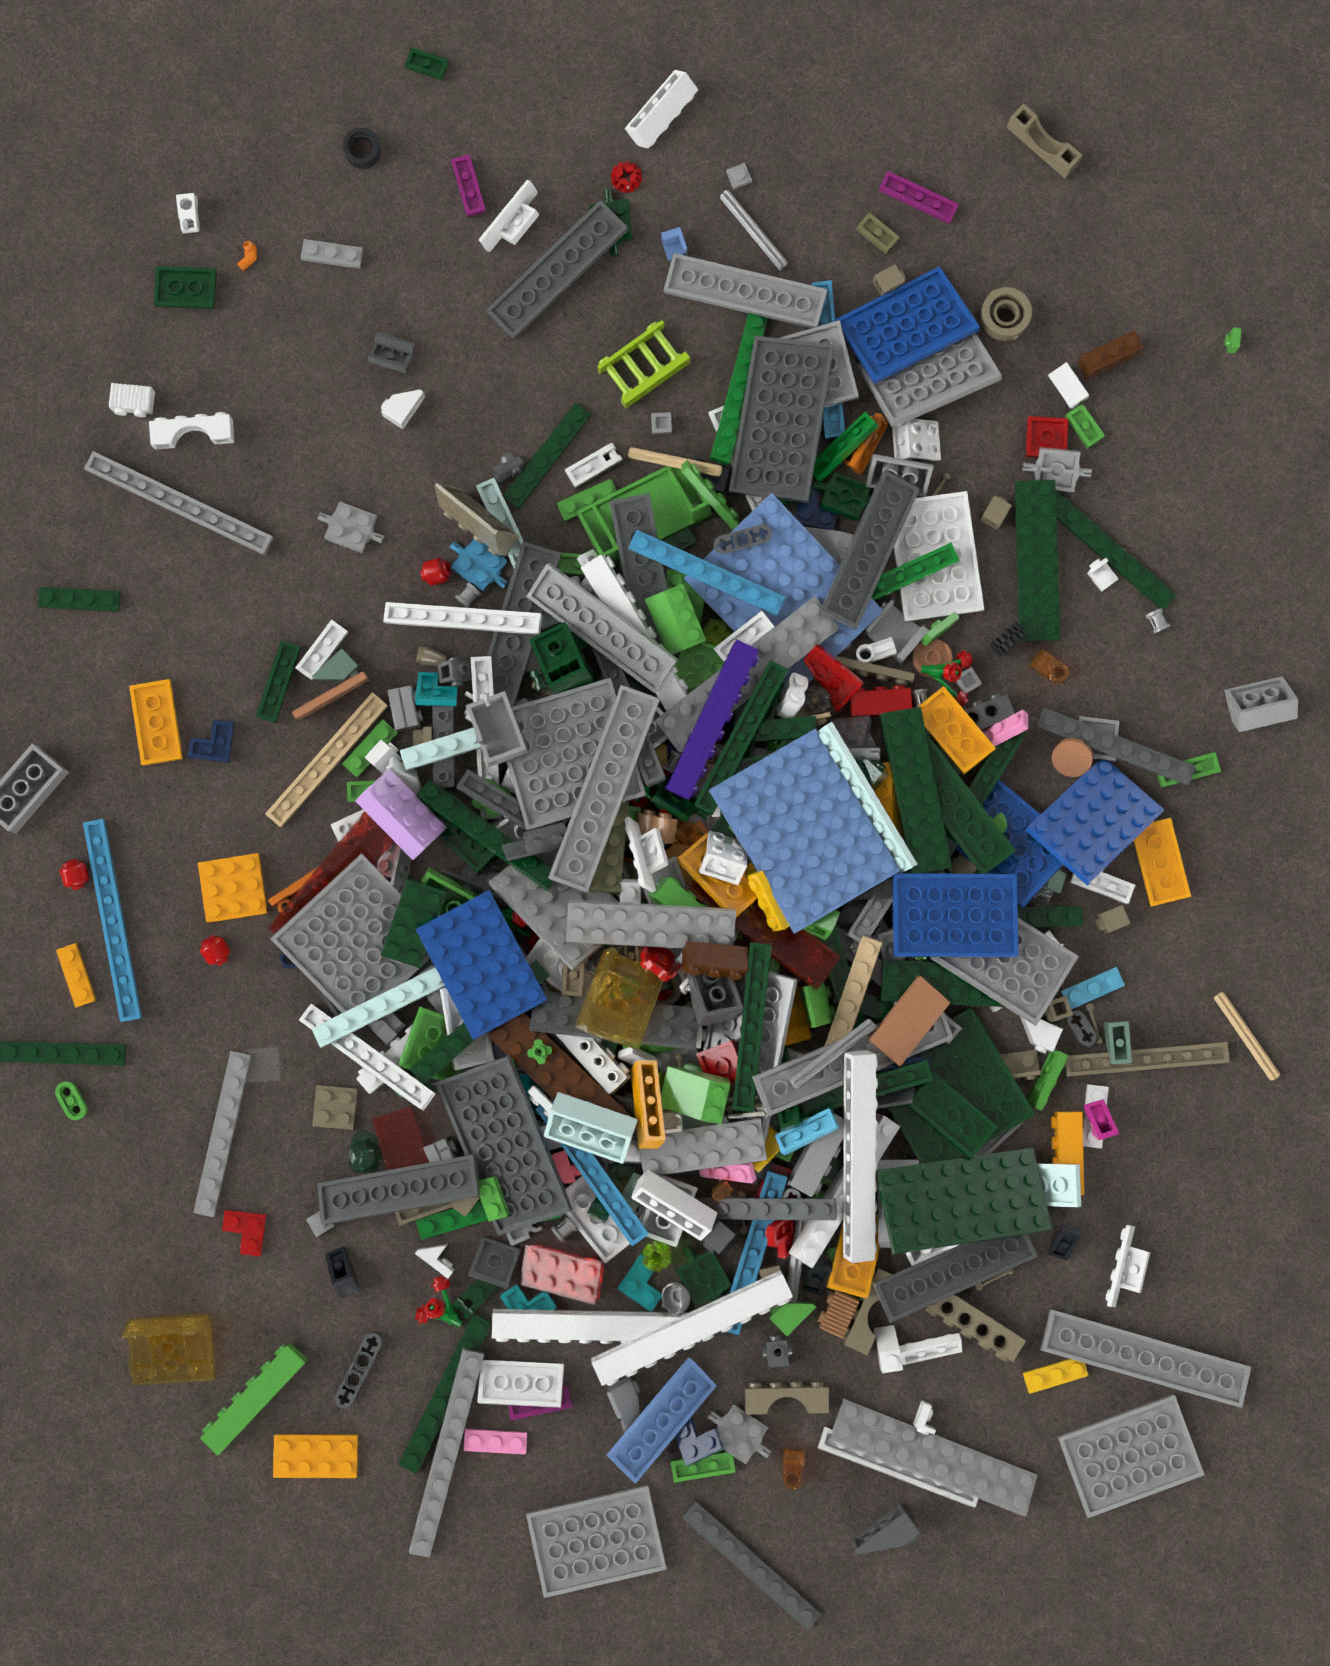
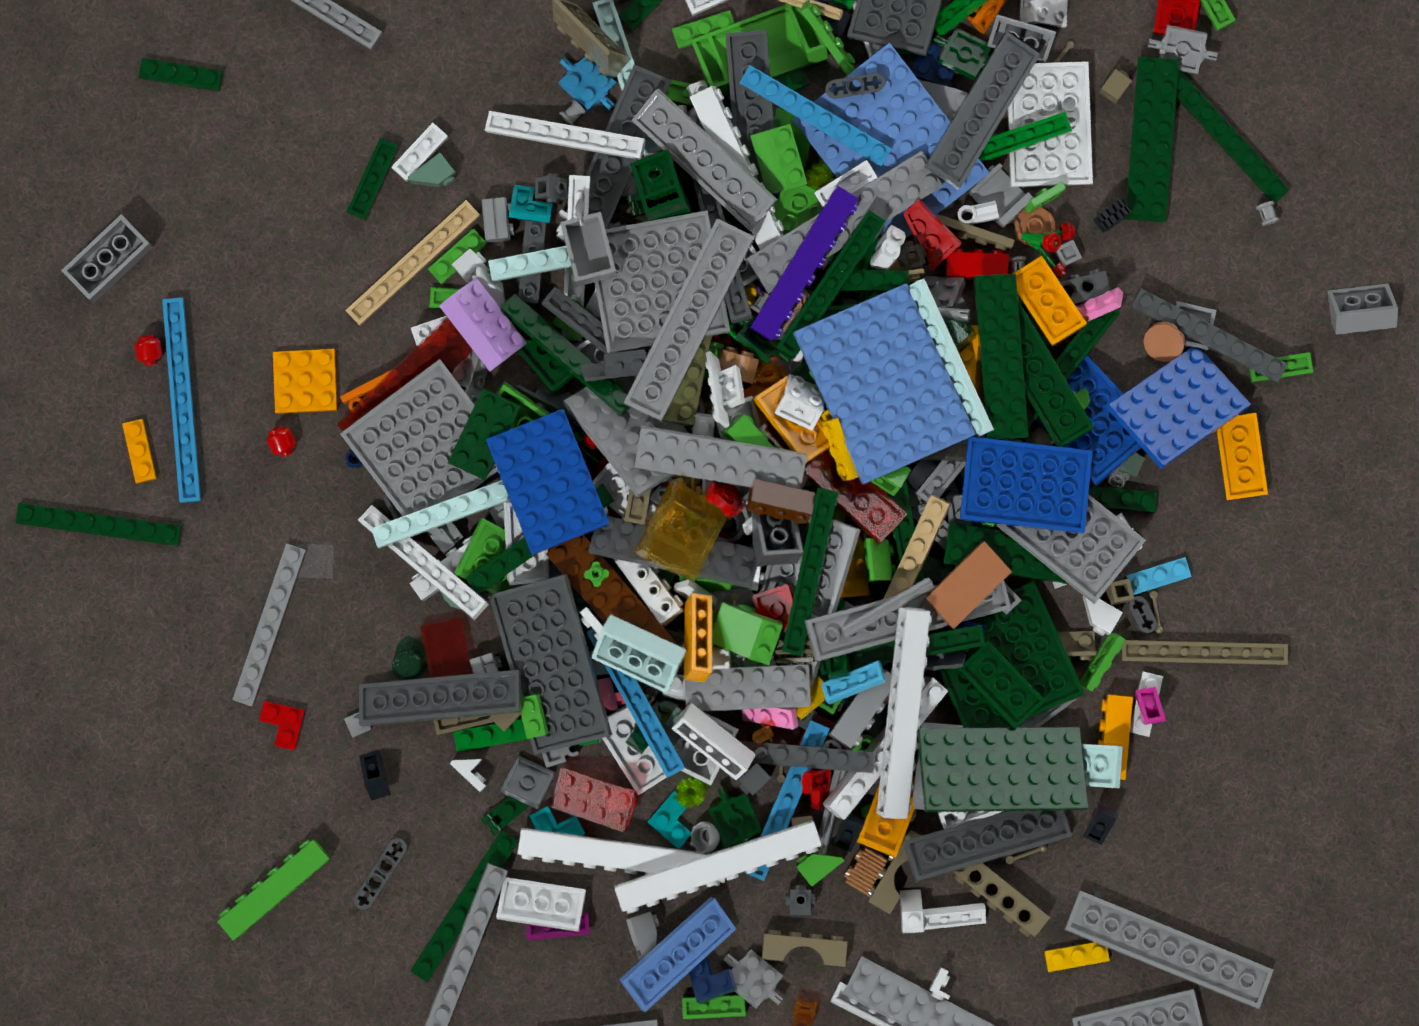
camera: 10 degrees right, 0 degrees up
(69, 1102) = (121, 576): bright green plate -> none
(156, 722) = (245, 206): light orange plate -> none
(170, 1349) = (196, 832): clear yellow piece -> none
(218, 747) = (304, 239): dark blue plate -> none
(315, 1456) = (328, 954): light orange plate -> none
(330, 696) = (424, 199): nougat tile -> none
(335, 1107) = (384, 611): dark tan plate -> none
(350, 527) = (461, 31): light grey plate -> none
(422, 736) = (512, 249): dark tan bracket -> none
(429, 657) = (526, 170): dark tan cone -> none
(435, 571) = (542, 85): red head -> none
(435, 1309) = (465, 818): red plant -> none
(495, 1441) = (509, 959): bright pink plate -> none
(564, 1229) = (601, 757): light grey bush -> none
(1047, 665) = (1150, 246): clear orange piece -> none
(1101, 574) = (1216, 160): white bracket -> none
(1108, 886) = (1184, 475): white plate -> none
(1112, 919) = (1186, 509): dark tan brick -> none
(1118, 1041) = (1177, 631): sand green slope -> none
(1129, 1269) = (1162, 859): white bracket -> none
(1247, 1036) = (1309, 641): tan axle -> none

